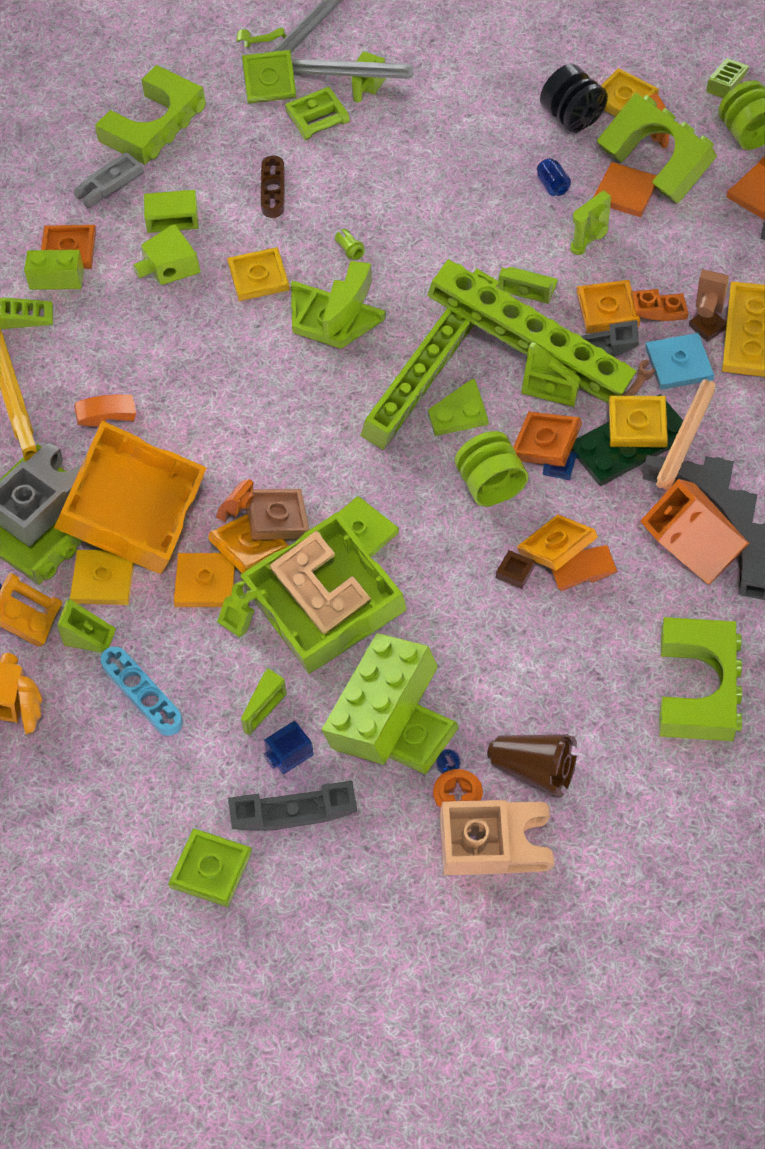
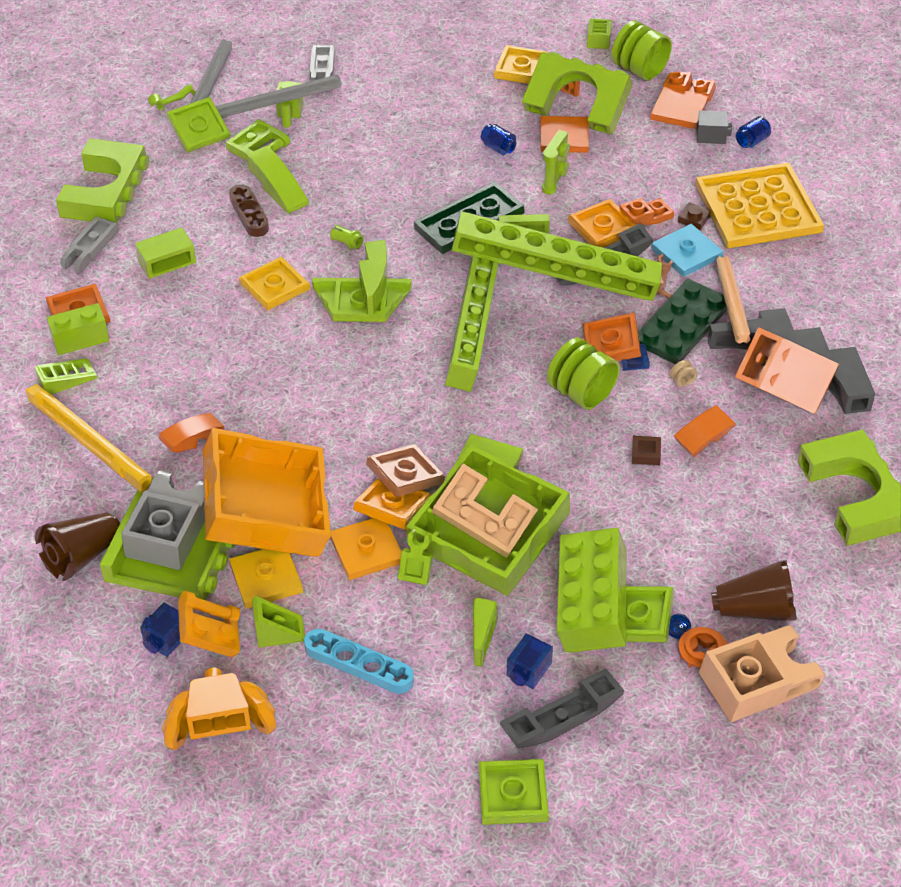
camera: 25 degrees left, 10 degrees down
(167, 257) = (184, 290): lime torso -> none
(239, 498) = (364, 466): orange slope -> none
(313, 160) = (276, 179): none -> lime slope
(422, 41) = (322, 62): none -> hinge
(459, 411) = (521, 341): lime wing -> none
(484, 251) = (487, 202): none -> dark green plate
(549, 378) = (589, 290): lime wing -> none
(557, 542) = (672, 415): light orange plate -> none
(573, 97) = (484, 73): black wheel -> none
(597, 498) = (683, 373): none -> tan bush
(638, 421) = (684, 302): yellow tile -> none
(711, 293) = (688, 186): nougat tile -> none

